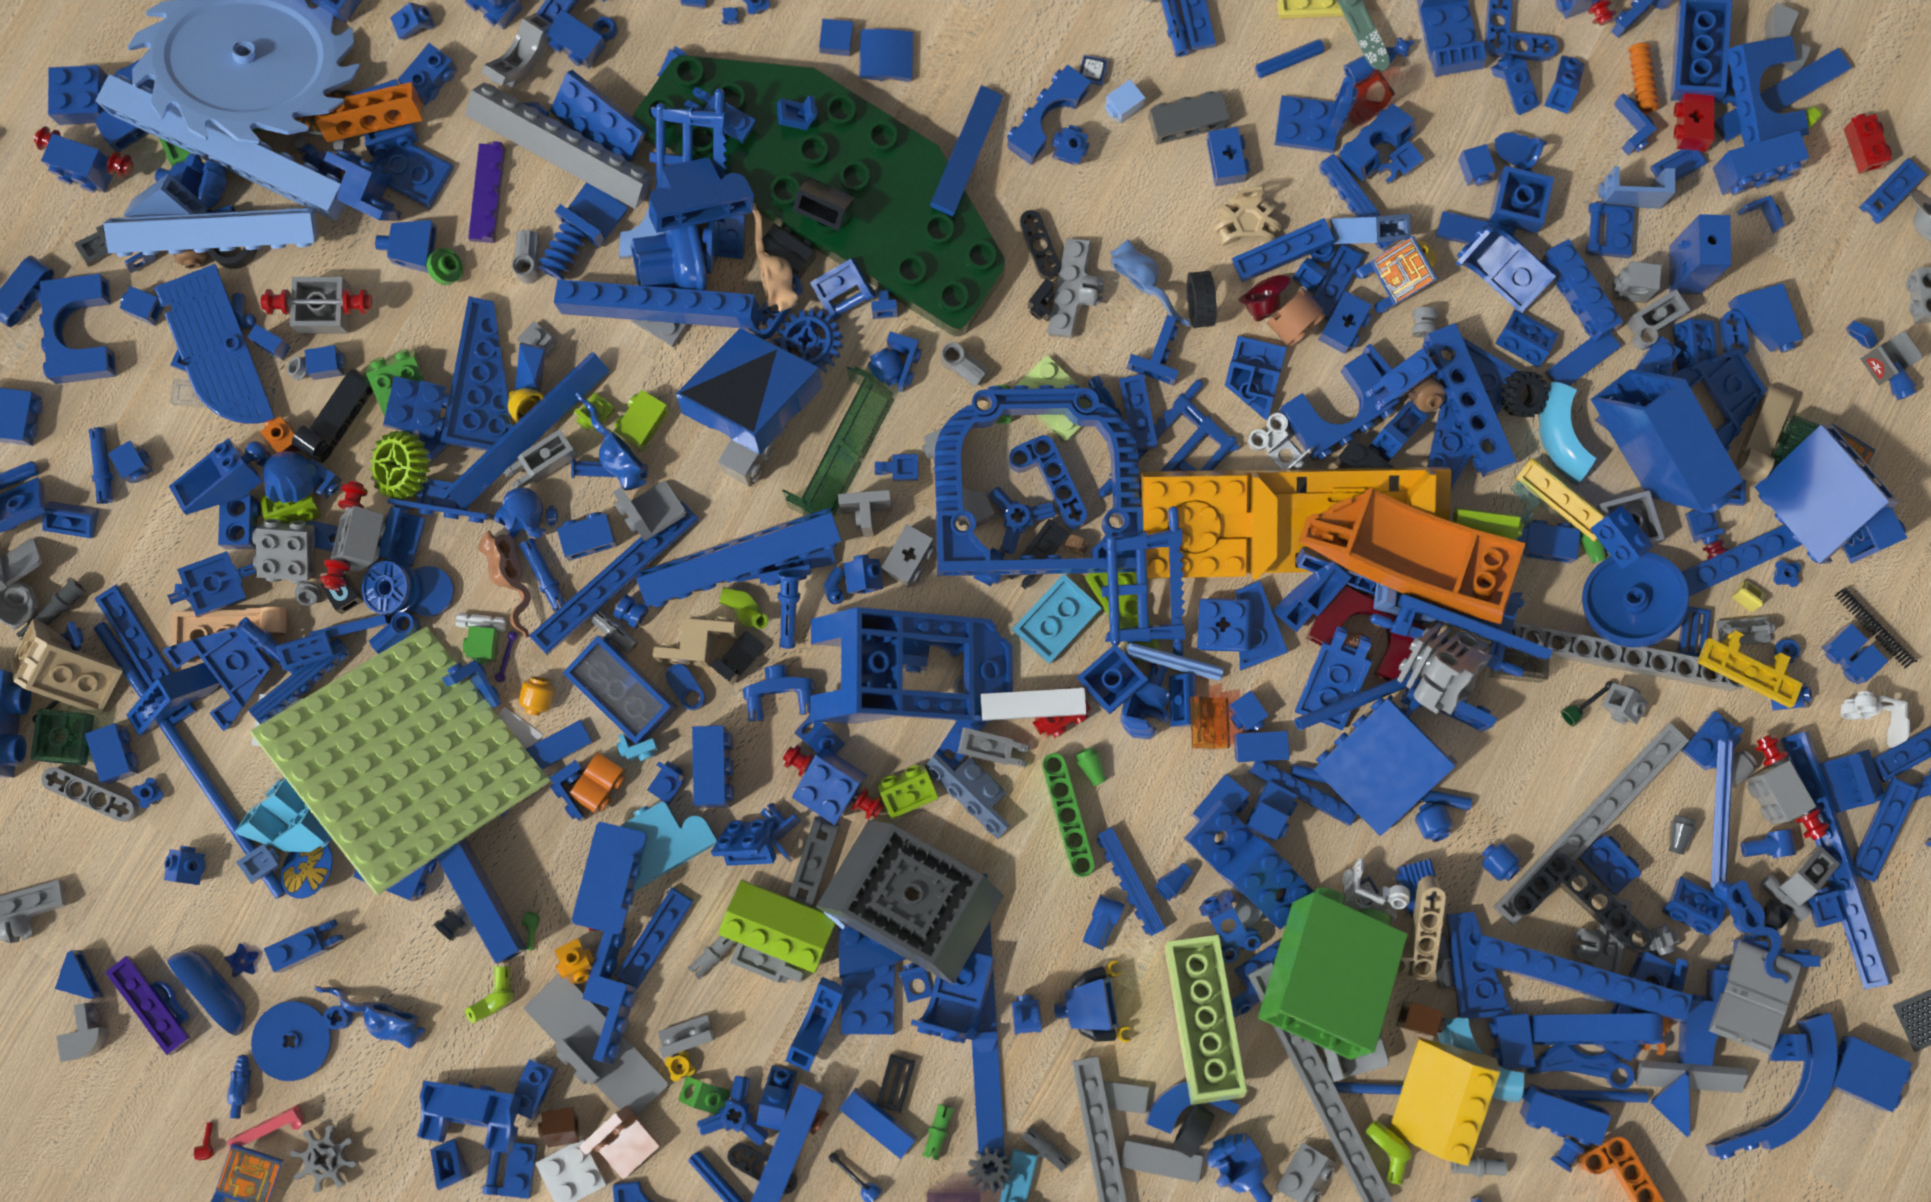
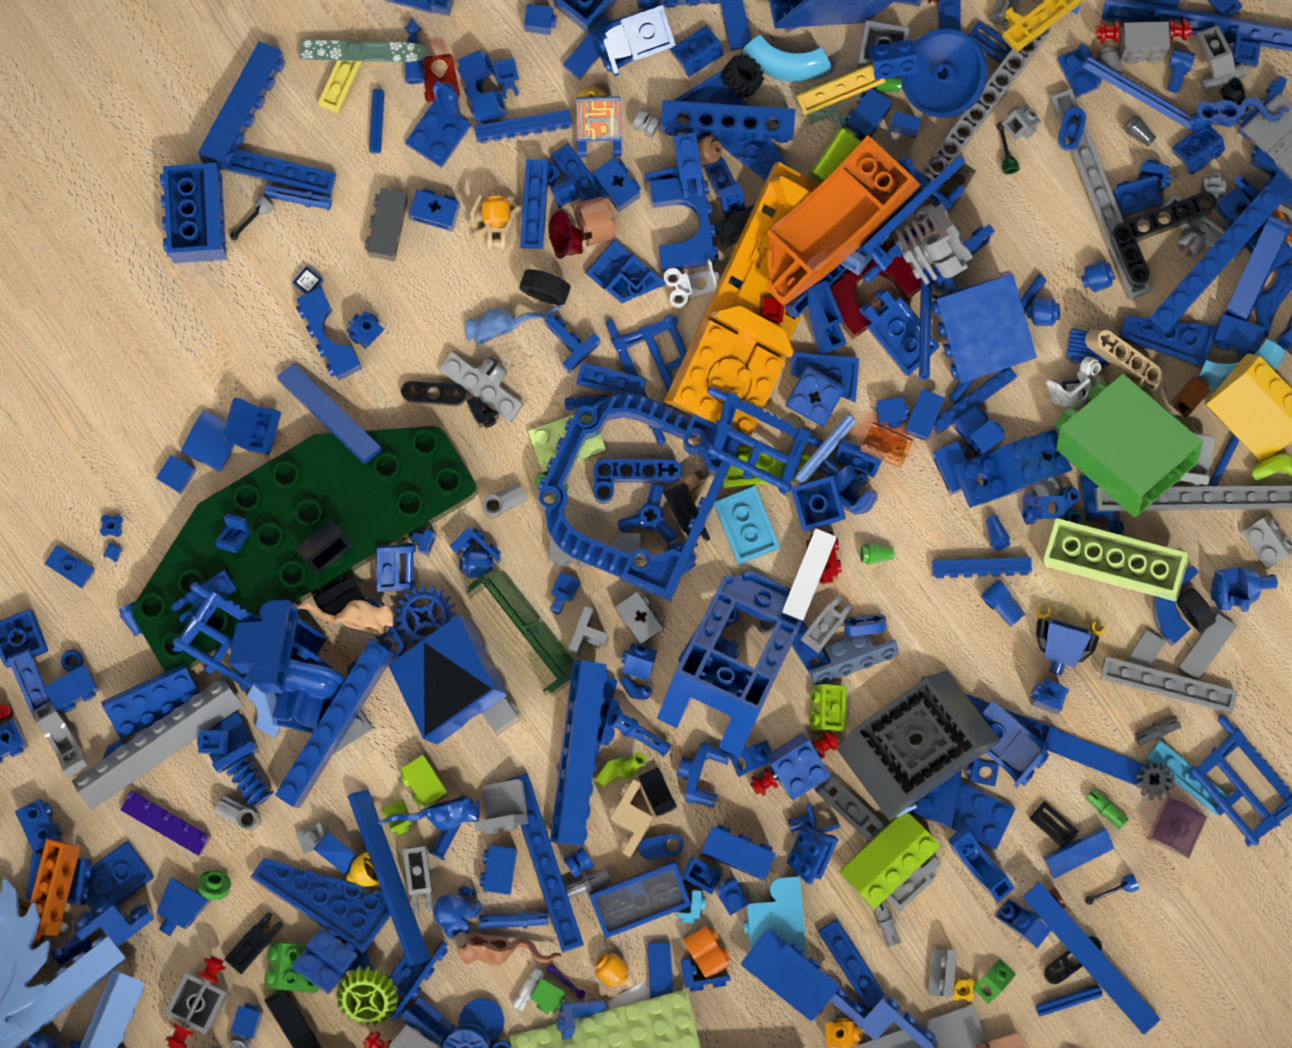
camera: 65 degrees left, 0 degrees up
(403, 332) = (252, 945): none -> black hinge
(582, 195) = (212, 742): none -> blue bracket
(673, 740) = (701, 875): none -> blue slope
(738, 1102) = (1032, 956): blue bush -> none
(917, 81) = (251, 426): none -> blue bracket
(1011, 788) = (865, 625): none -> blue beam
(1062, 803) = (917, 586): bright green beam -> none
(1124, 101) = (348, 269): light blue brick -> none
(1254, 212) = (495, 211): none -> light orange head
(1289, 536) = (771, 310): none -> red tile
(1371, 229) = (553, 127): medium blue slope -> none
(1443, 966) = (1160, 360): dark grey axle -> none
(1559, 584) = (905, 124): none -> blue piece
(1644, 759) = (1071, 130): none -> blue plate
(1648, 868) = (1154, 168): none -> blue bracket

